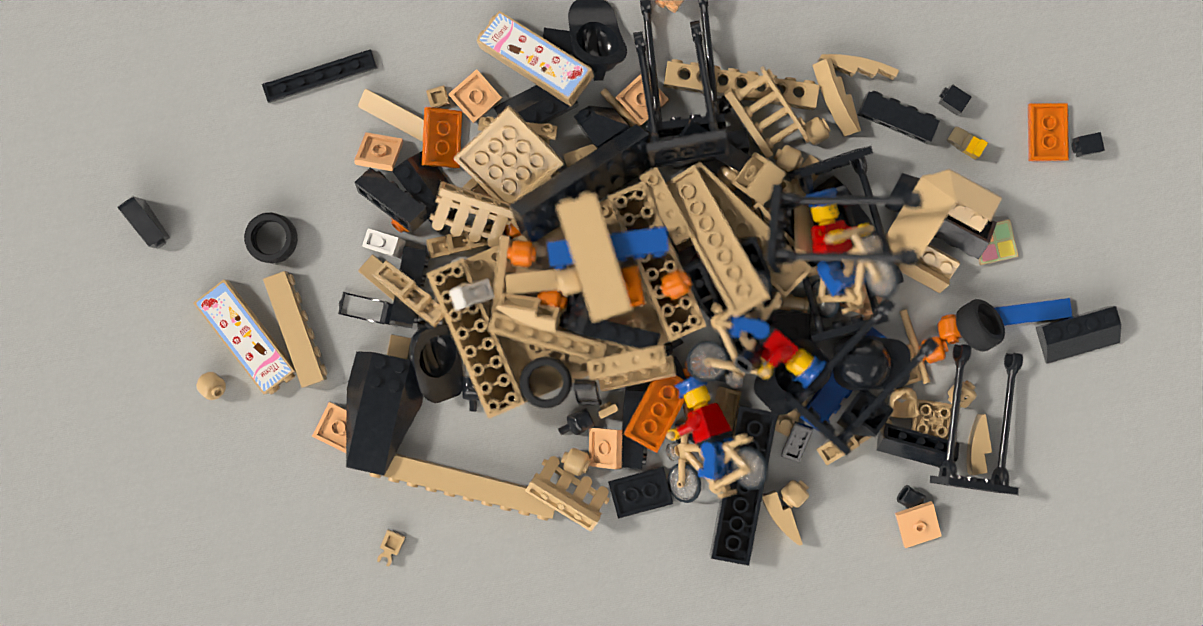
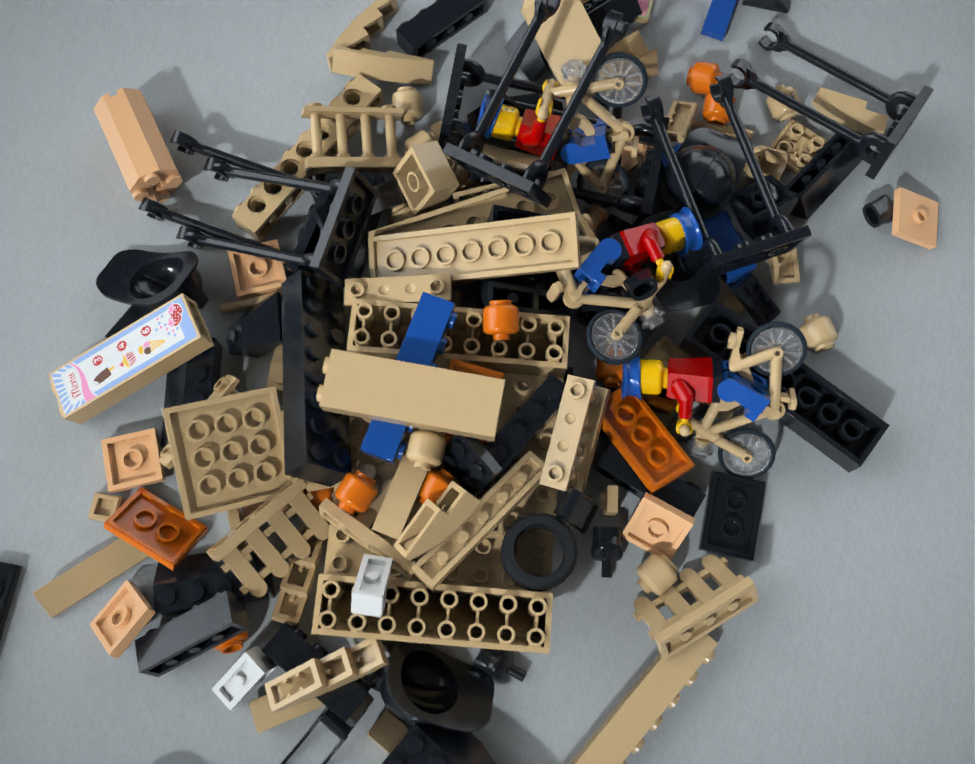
camera: 60 degrees left, 15 degrees down
(782, 516) = (842, 360): tan slope -> none
(905, 327) = (681, 120): none -> tan plate
(980, 325) = (717, 42): black tyre -> none

